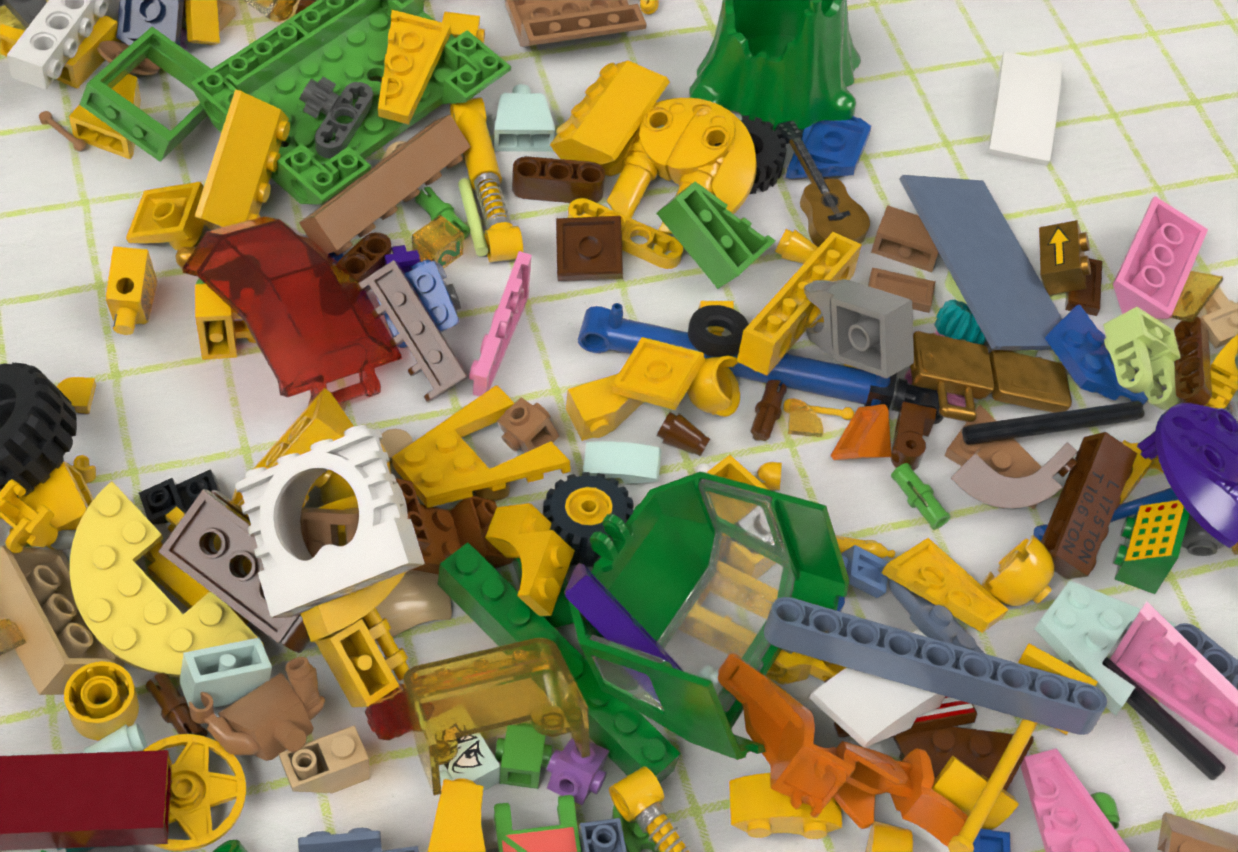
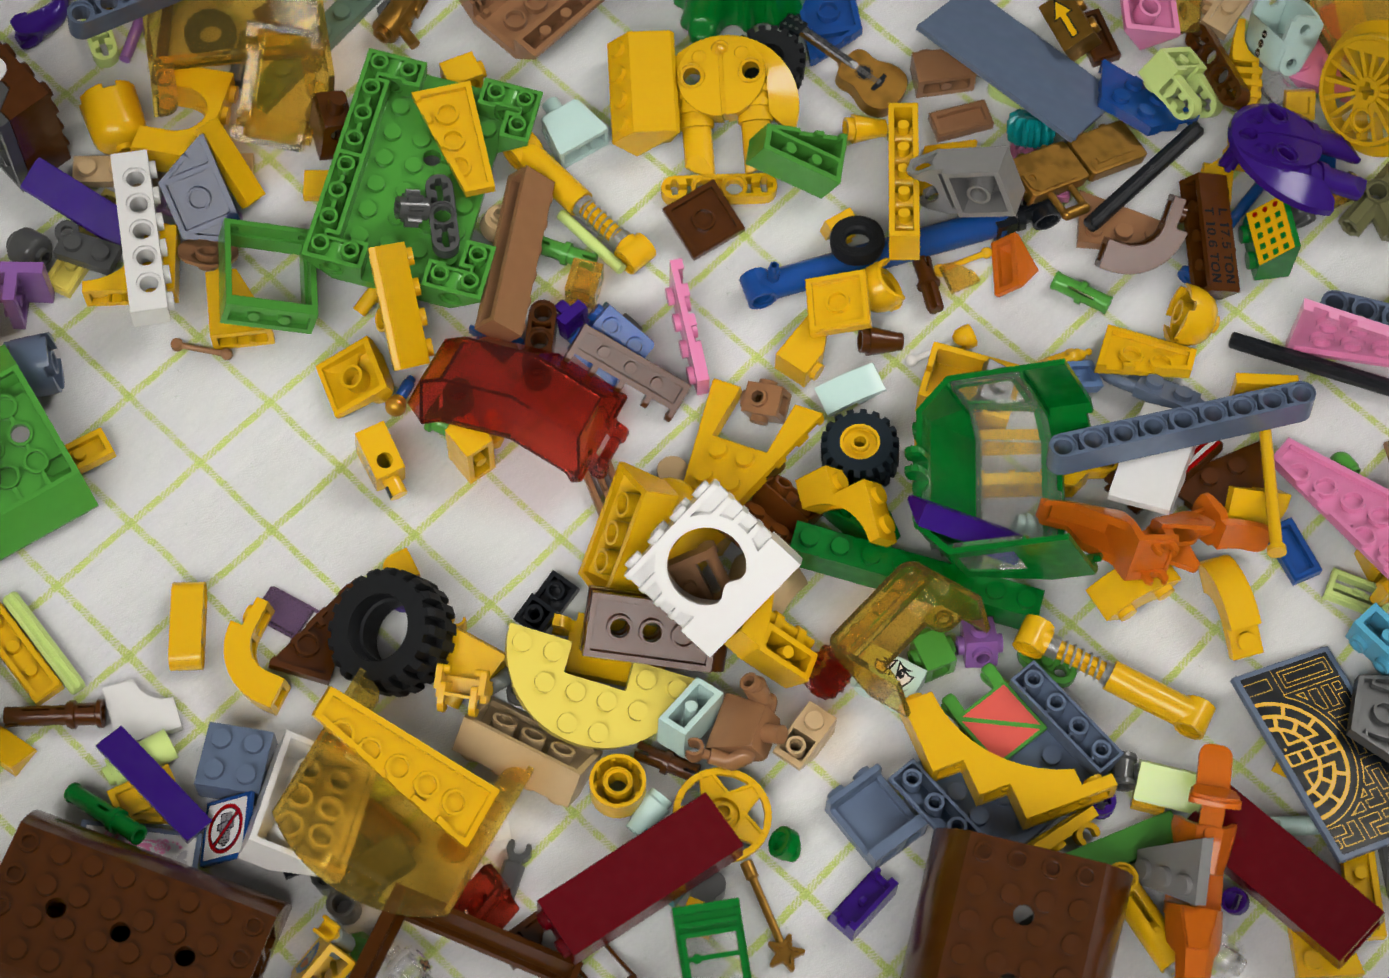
camera: 25 degrees left, 10 degrees up
(557, 179) = (645, 160): reddish brown beam -> none
(908, 442) = (1044, 247): reddish brown leg -> none
(1083, 629) = (1259, 335): light aqua wing -> none

